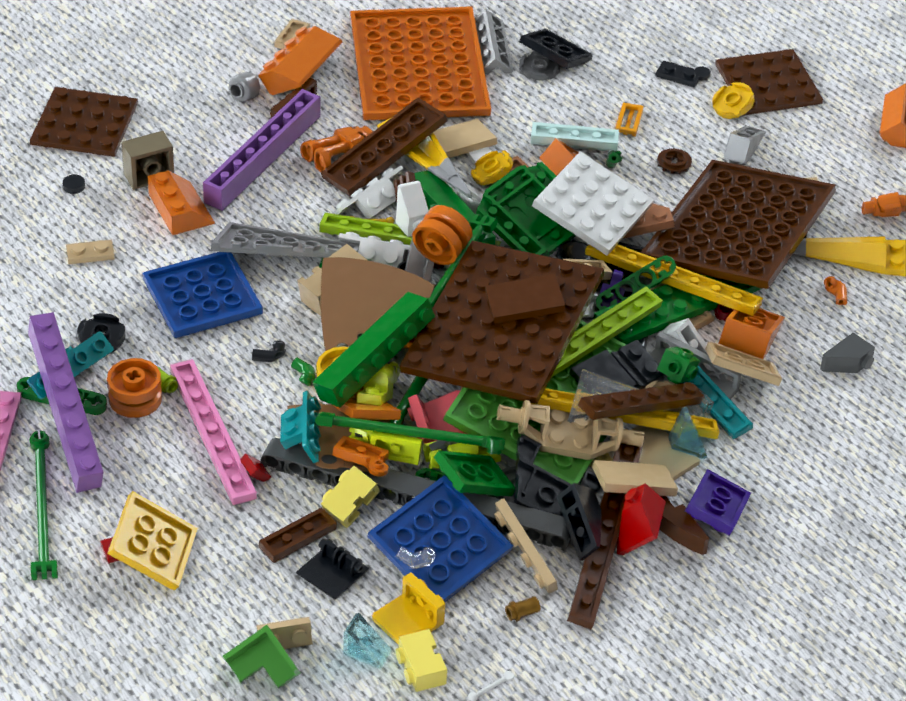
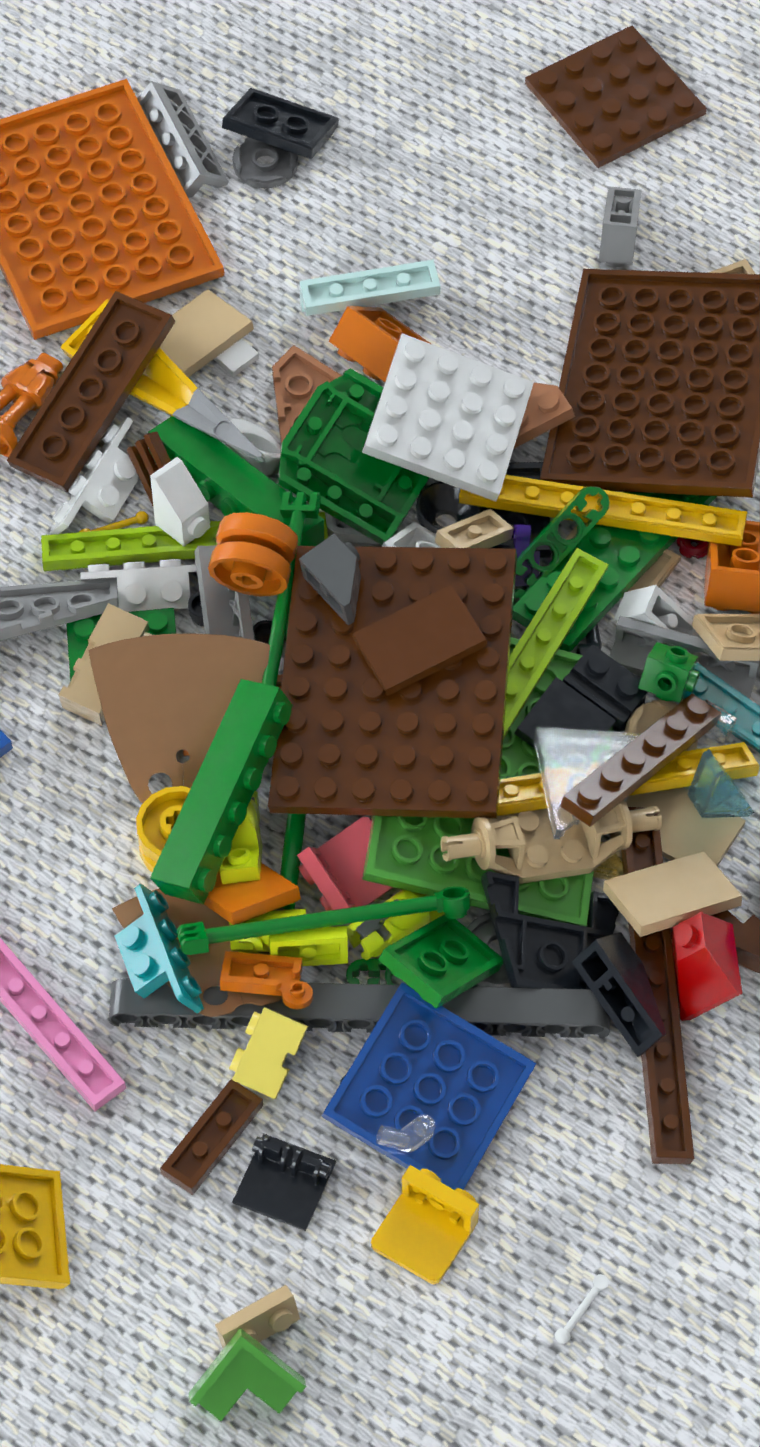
camera: 15 degrees left, 15 degrees up
(255, 468) = (106, 1037): red tile -> none
(270, 355) = (53, 820): black arm -> none
(306, 369) = (117, 833): green arm -> none
(364, 643) = (382, 1300): clear light blue slope -> none
(422, 665) = (476, 1311): light yellow brick -> none
(486, 254) = (334, 574): none -> dark grey slope
(492, 167) = (264, 379): yellow tile -> none
(522, 608) = (575, 1168): pearl gold pin -> none
(529, 555) = (542, 1050): tan plate -> none
(613, 158) = (437, 308): green arm -> none
(627, 130) = (434, 247): light orange tile -> none
(666, 157) = (539, 278): reddish brown gear -> none
(682, 74) = (483, 117): black hinge -> none
(733, 100) = (577, 149): yellow tile -> none

